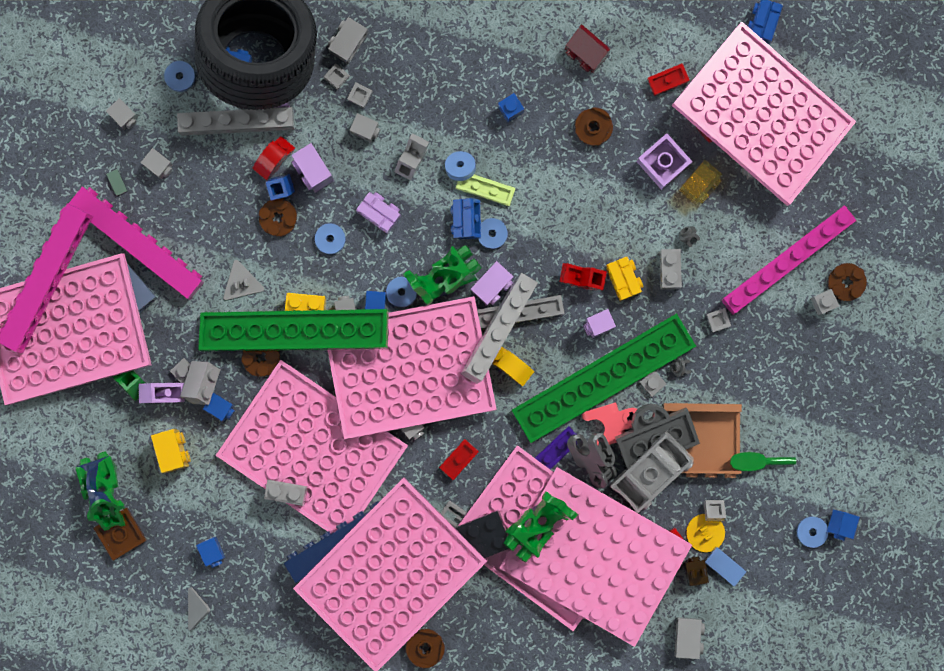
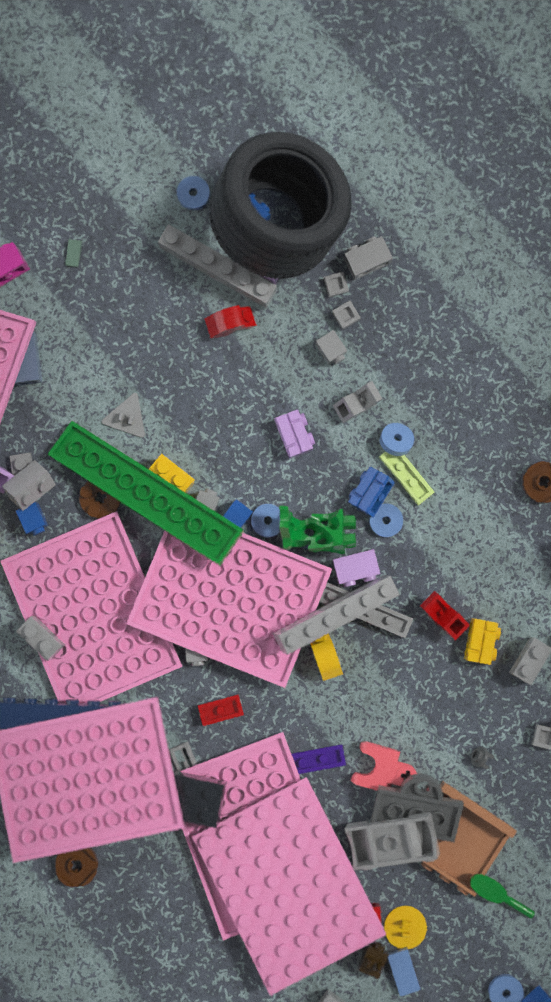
camera: 30 degrees right, 0 degrees up
(122, 114) = (118, 194): light grey brick -> none
(137, 244) = (55, 321): dark pink brick -> none
(157, 164) = (120, 259): light grey brick -> none
(275, 228) = (192, 369): reddish brown plate -> none
(280, 187) = (218, 352): blue brick -> none
(313, 168) = (259, 353): lavender brick -> none
(330, 230) = (227, 422): medium blue piece -> none
(511, 107) = (478, 415): blue brick -> none
(527, 528) = (242, 820): green hips -> none
(595, 458) = (347, 792): dark grey piece -> none
(599, 324) = (431, 669): lavender brick -> none
(603, 378) = (403, 721): green plate -> none
(652, 383) = (446, 755): light grey plate -> none
(714, 510) = (427, 913): light grey plate -> none

